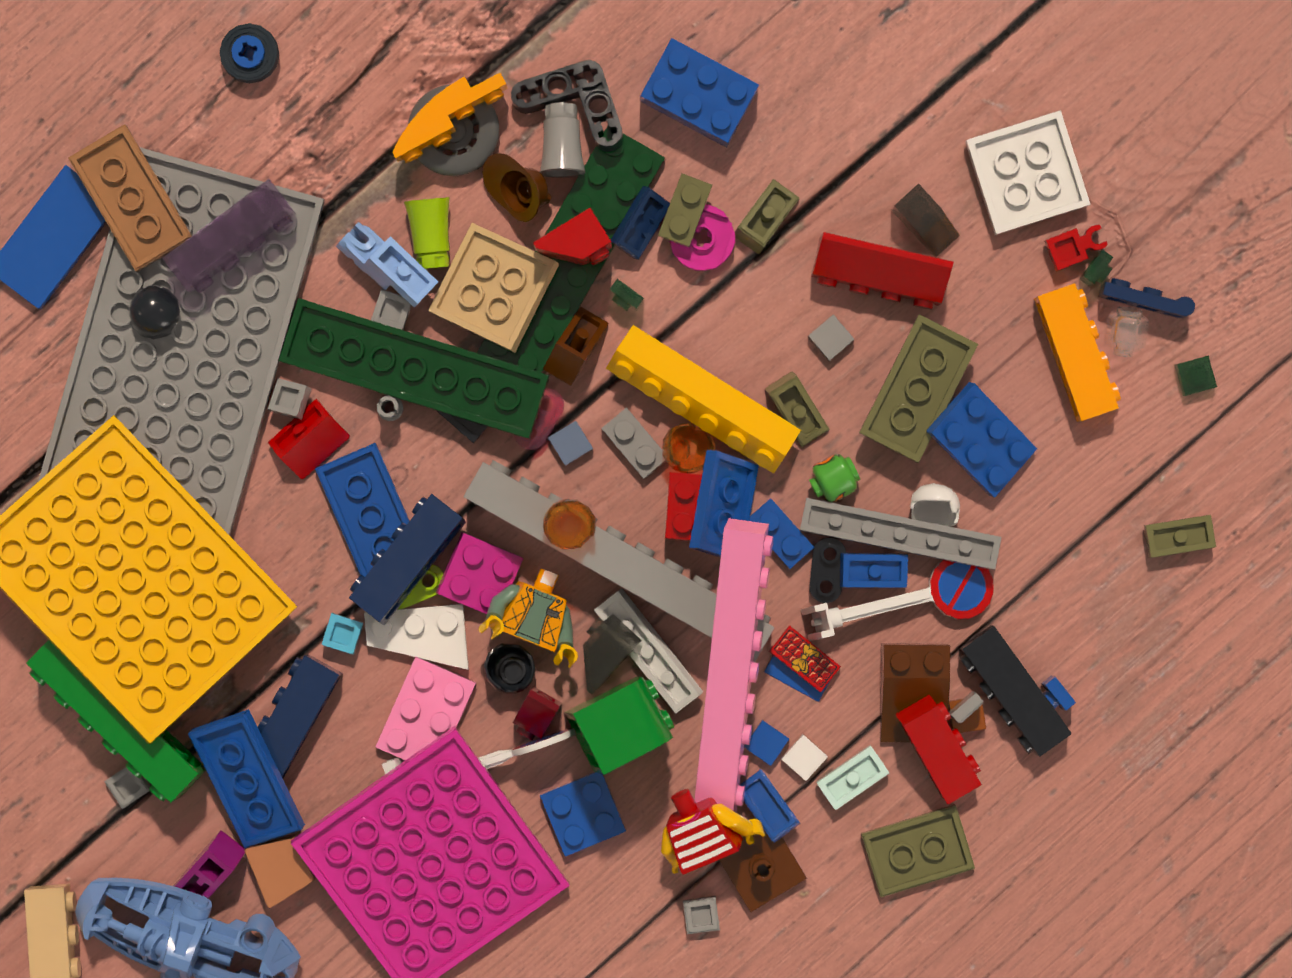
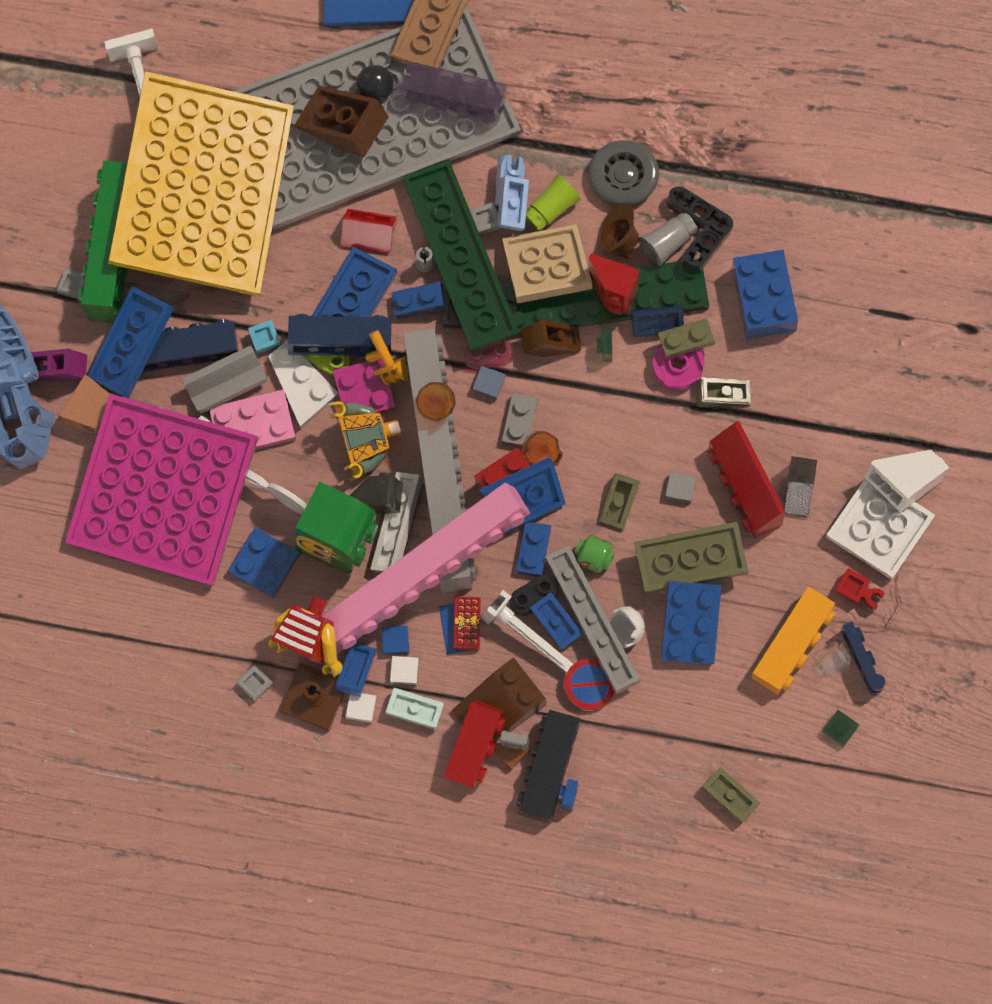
camera: 60 degrees right, 15 degrees down
(169, 376) = (343, 119): none -> reddish brown slope
(254, 64) = (575, 35): black wheel -> none
(289, 399) = (384, 200): light grey plate -> none
(360, 709) = (224, 380): none -> light grey panel
(427, 447) = (418, 300): none -> blue plate
(433, 121) = (621, 152): light orange slope -> none
(485, 534) = (392, 369): none -> light orange arm
(509, 668) = (319, 447): black hair -> none
(536, 714) = (303, 480): dark red slope -> none
(703, 399) = (579, 437): yellow brick -> none
(811, 828) = (361, 707): none -> white tile
(917, 850) = (400, 786): olive tile -> none
(1004, 107) = (906, 476): none -> white slope
(1097, 269) = (856, 613): clear green plate -> none

